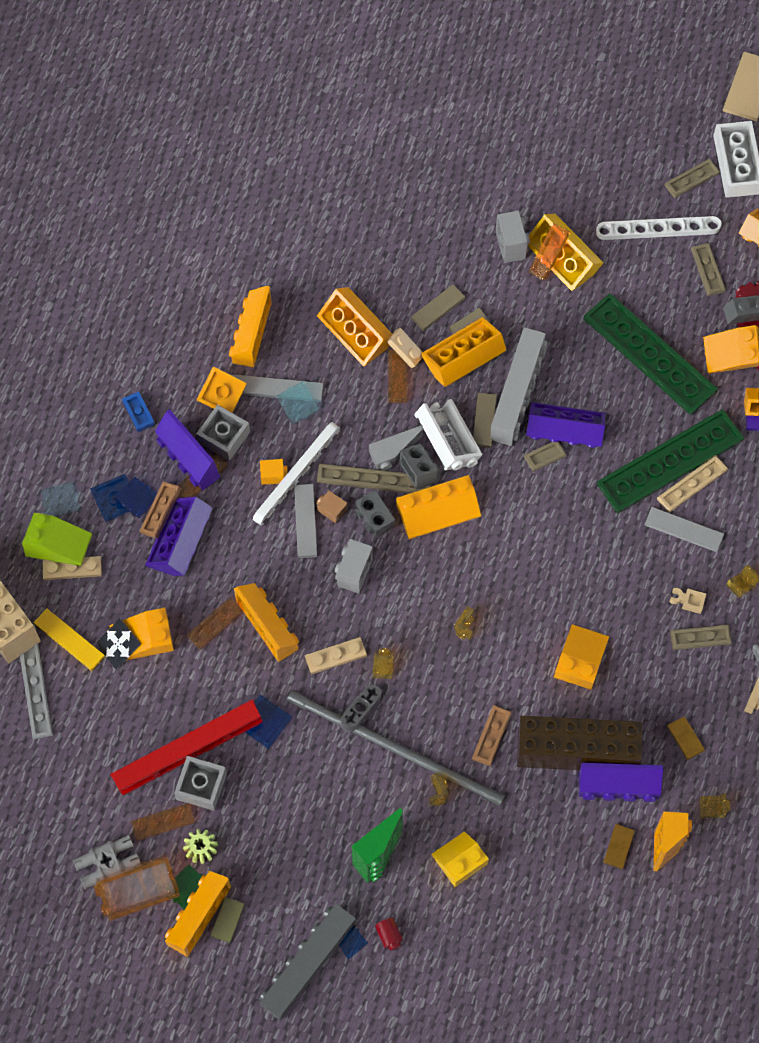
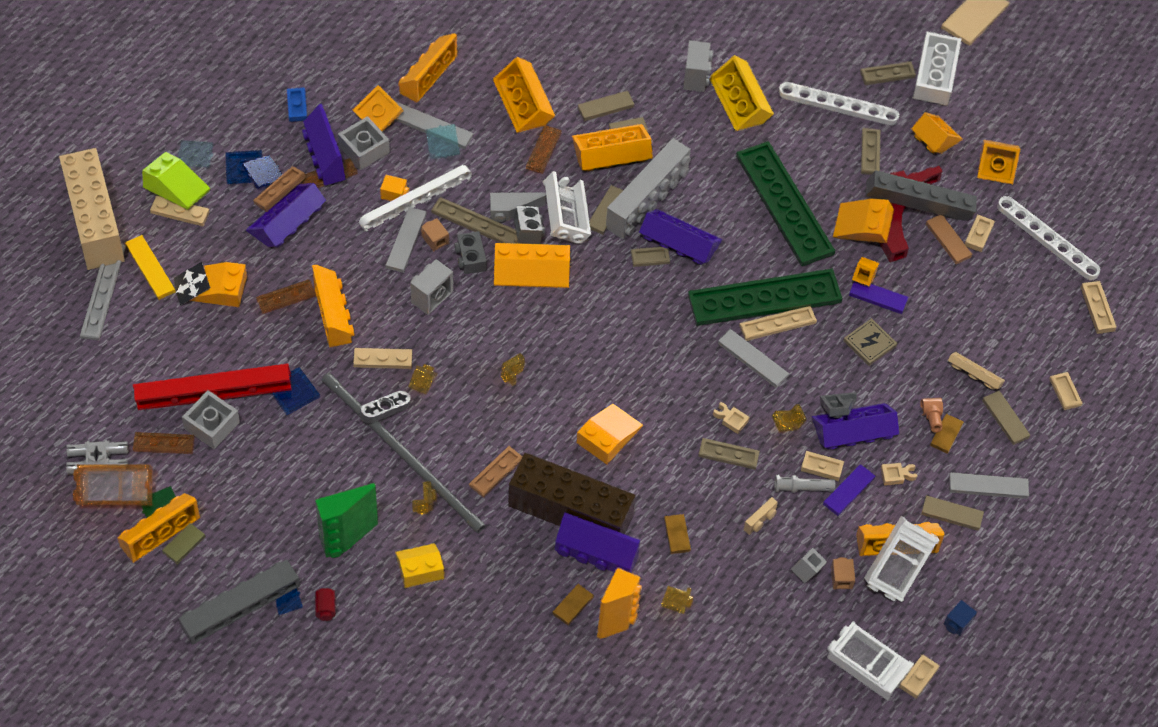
camera: 15 degrees right, 10 degrees down
(208, 842) = (187, 472): yellowish green gear -> none
(405, 347) = (560, 126): tan plate -> none
(549, 252) = (726, 89): clear orange tile -> none

